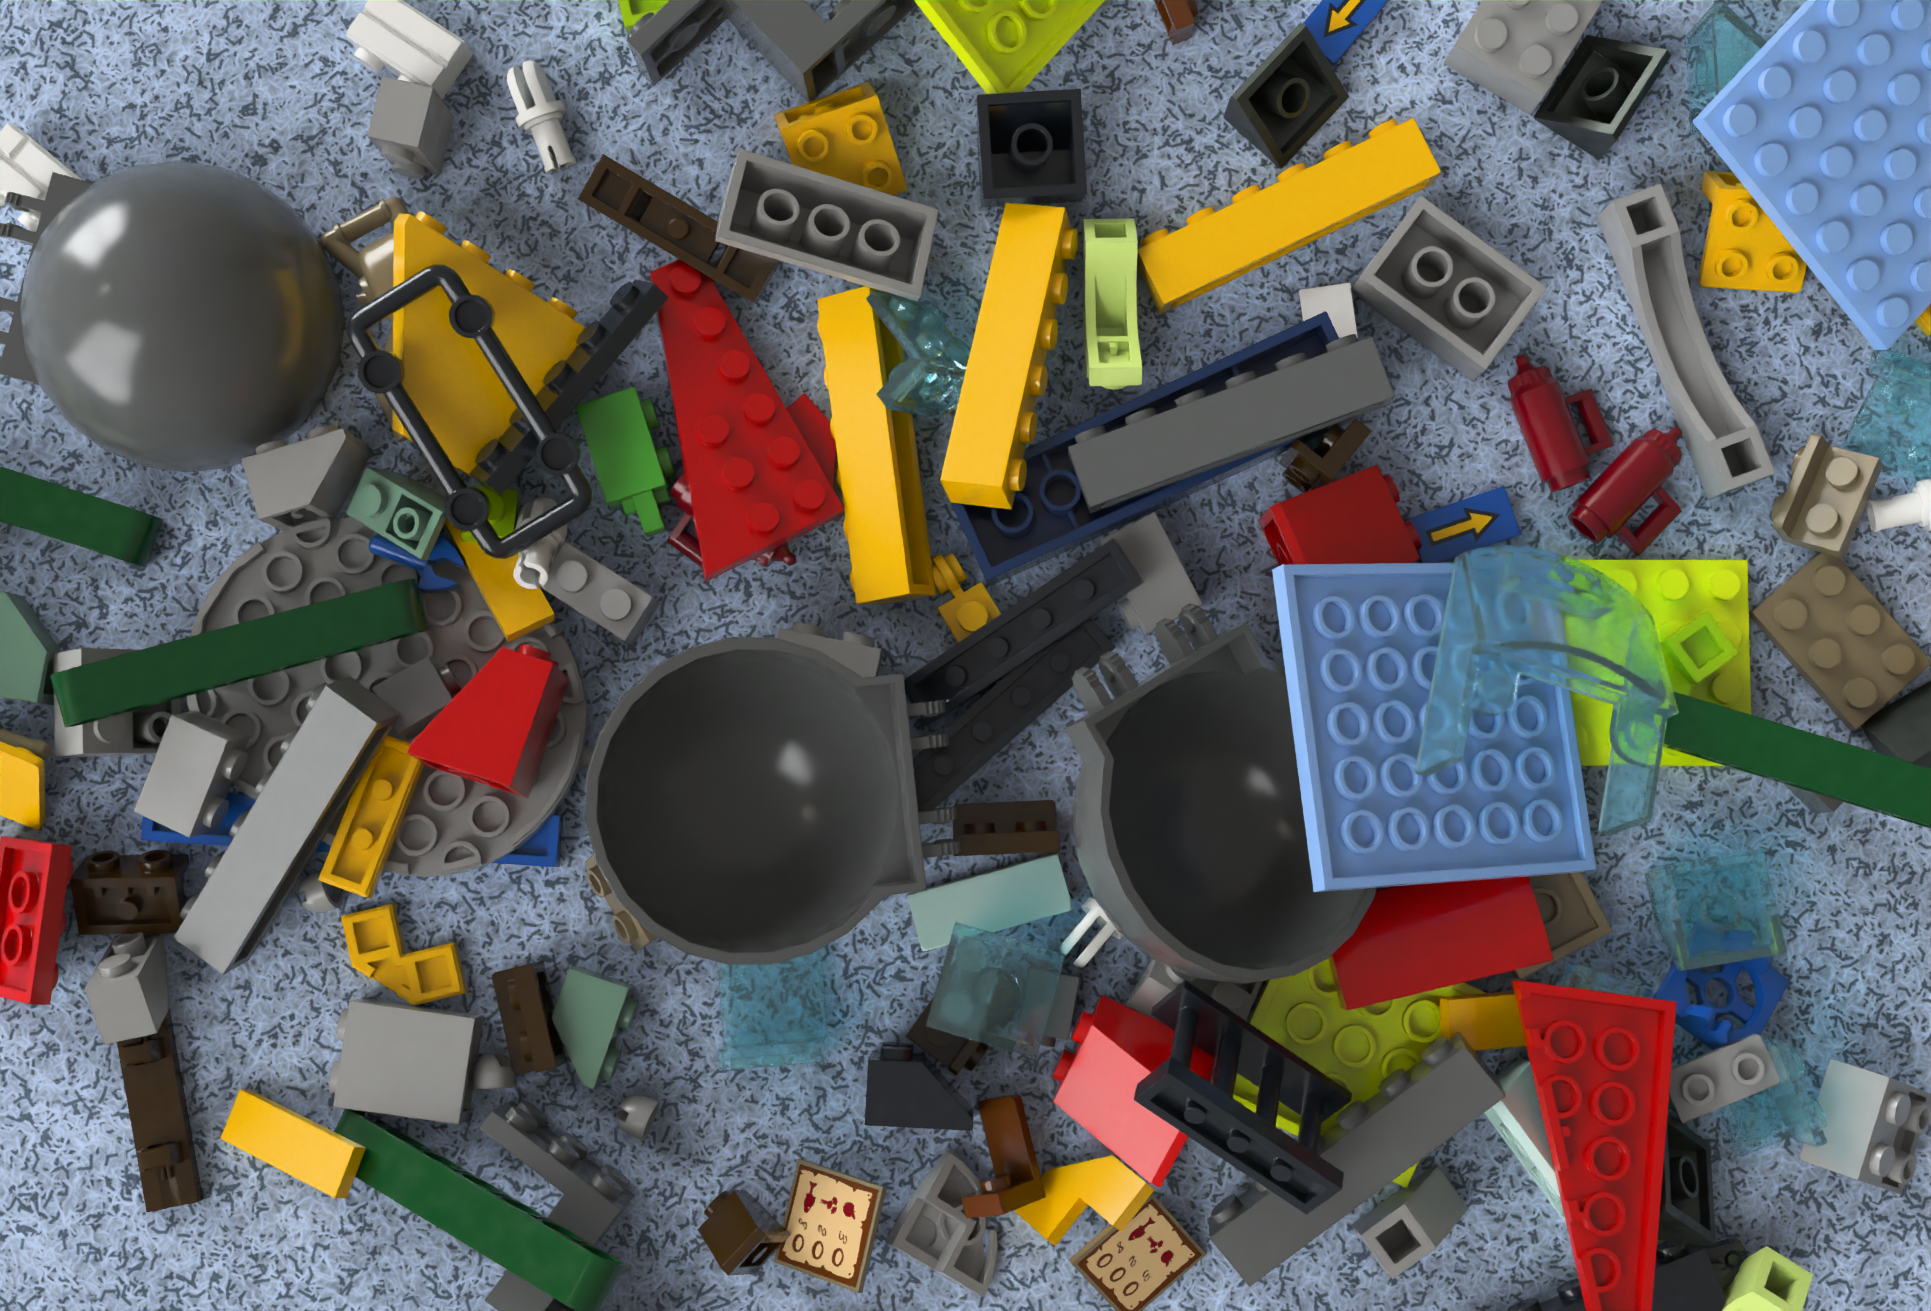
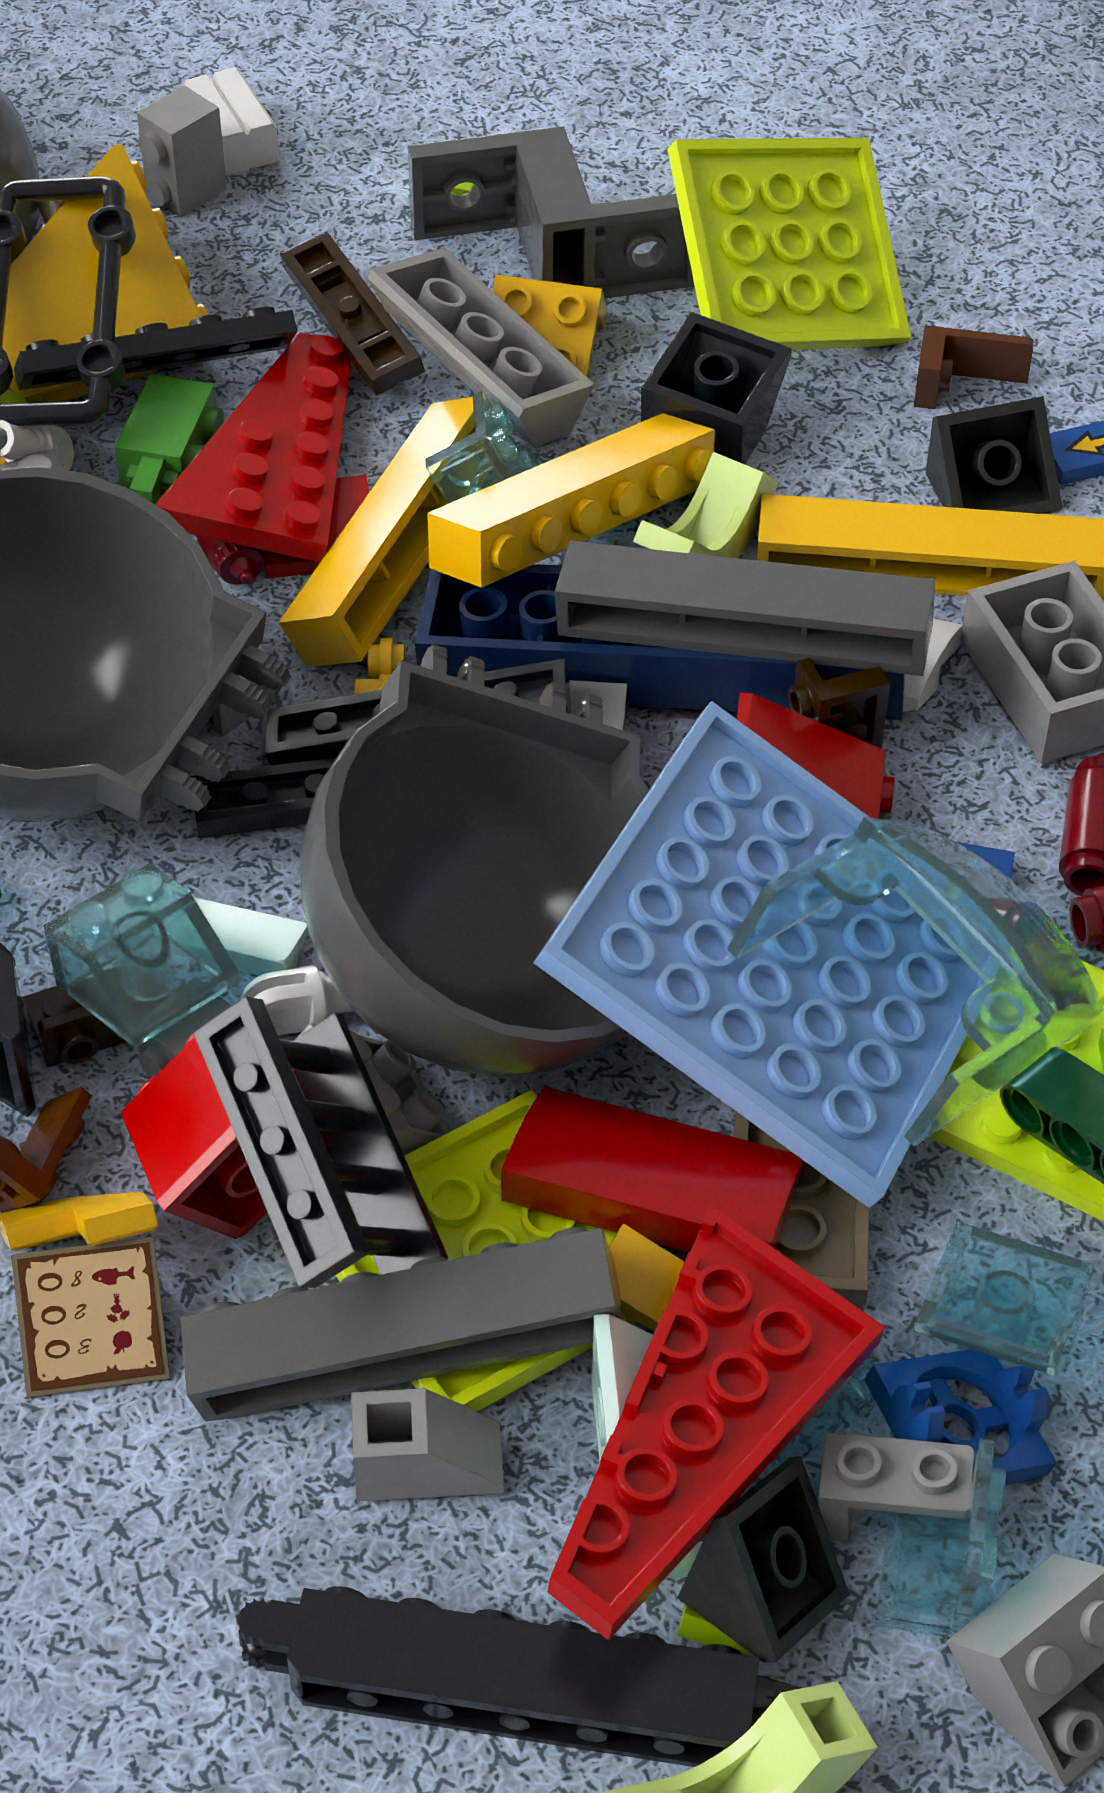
camera: 30 degrees right, 35 degrees down
(540, 114) = (299, 203): white arm -> none
(1006, 827) = (251, 868): dark brown bracket -> none

